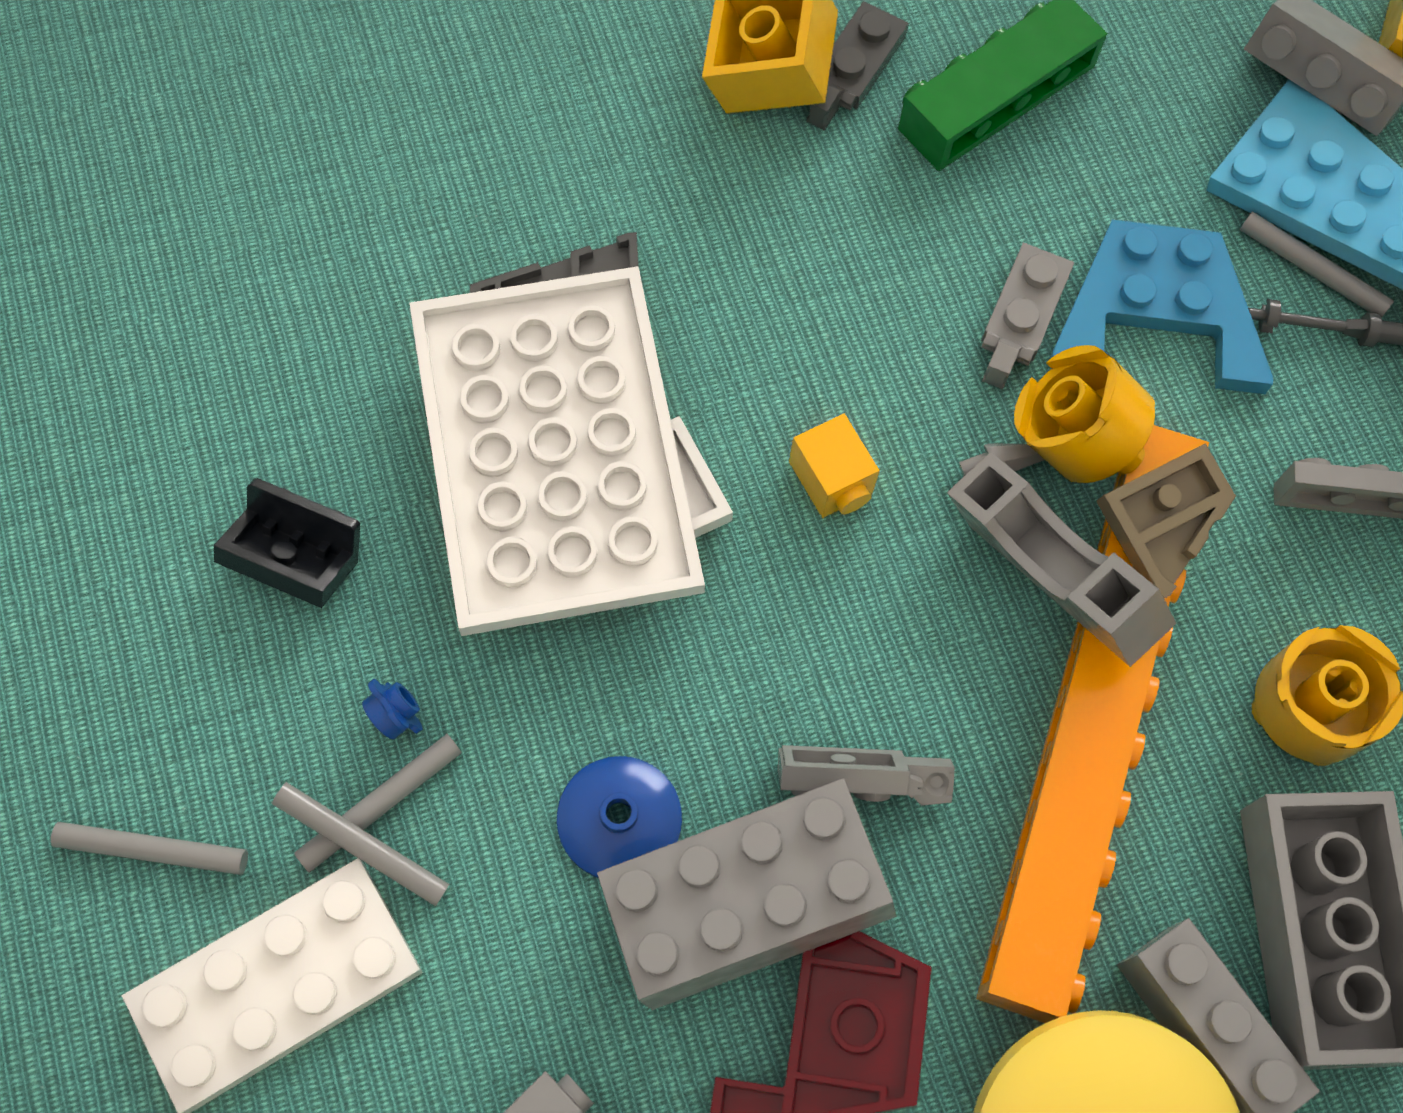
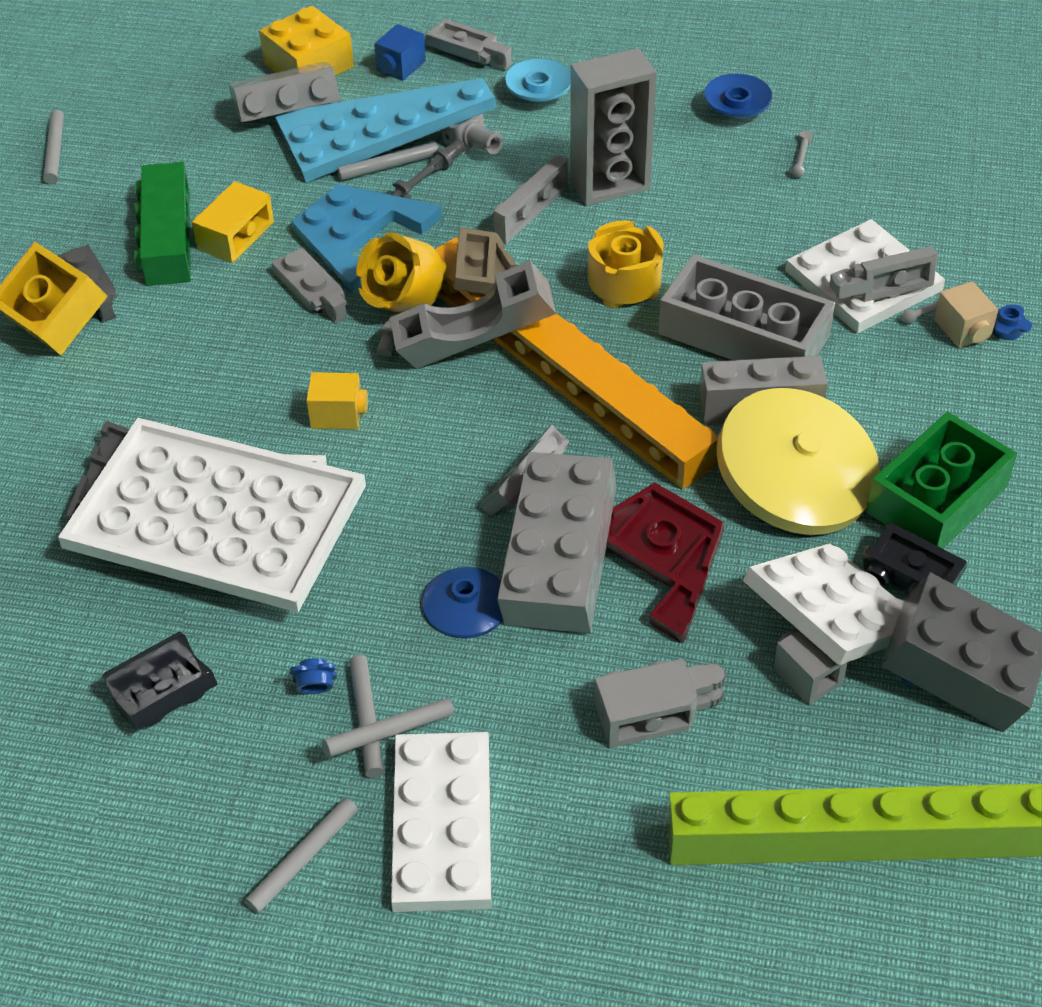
camera: 55 degrees left, 20 degrees down
(1059, 154) = (233, 222): none -> yellow brick

